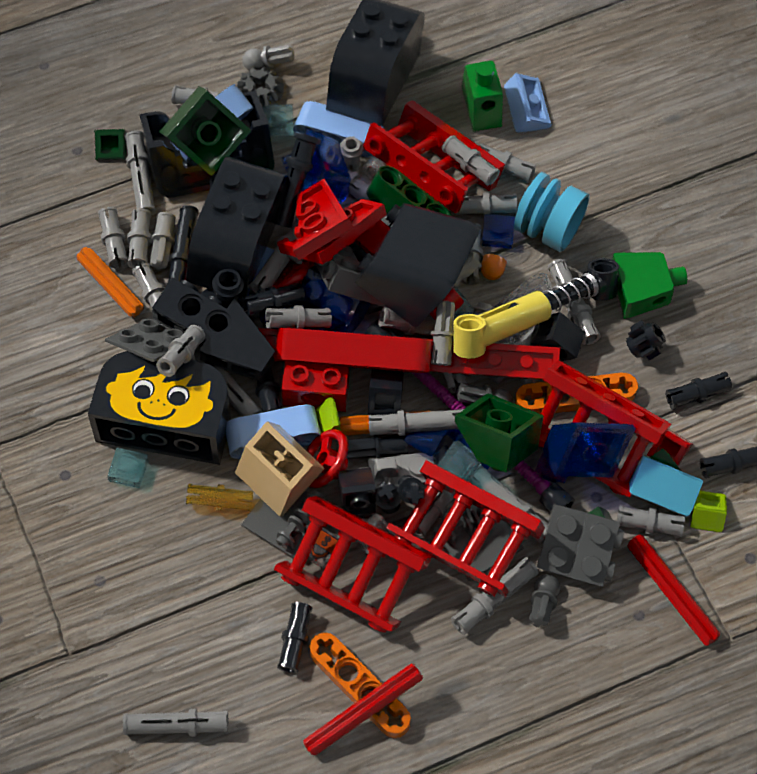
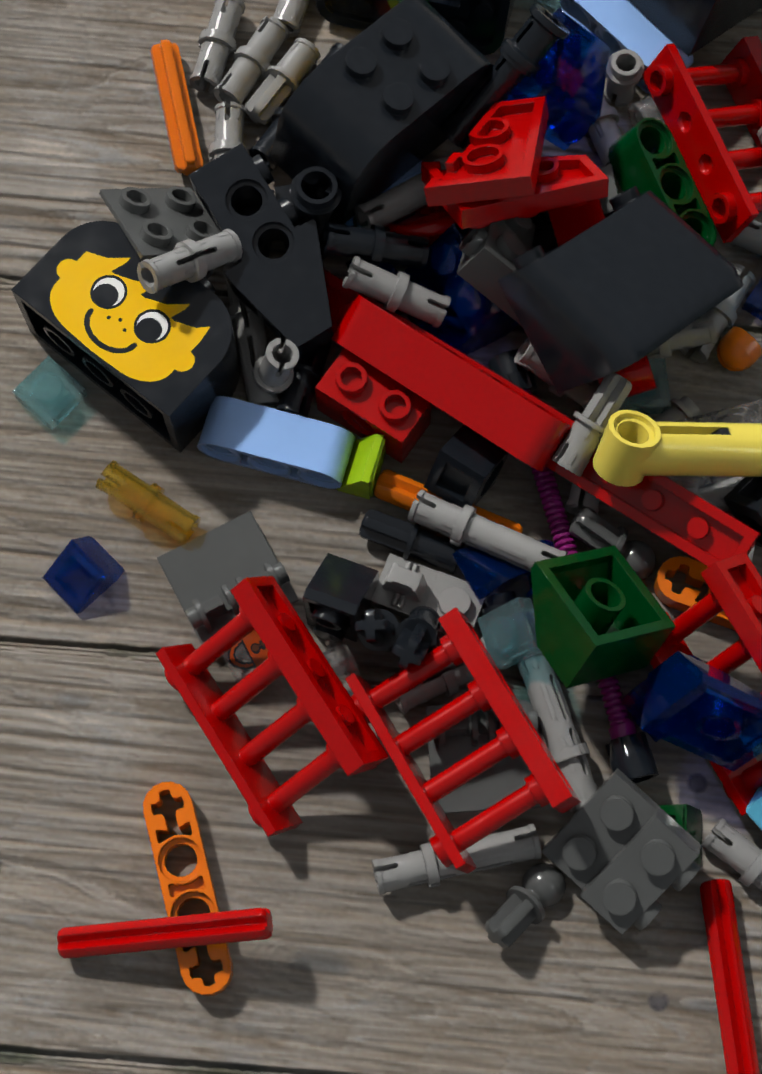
camera: 30 degrees right, 10 degrees up
(203, 554) = (83, 572): none -> clear blue slope
(252, 392) = (275, 369): none -> light grey pin
(277, 467) = (246, 501): tan slope -> none
(294, 637) = (134, 768): black pin -> none
(329, 458) = (327, 527): red piece -> none

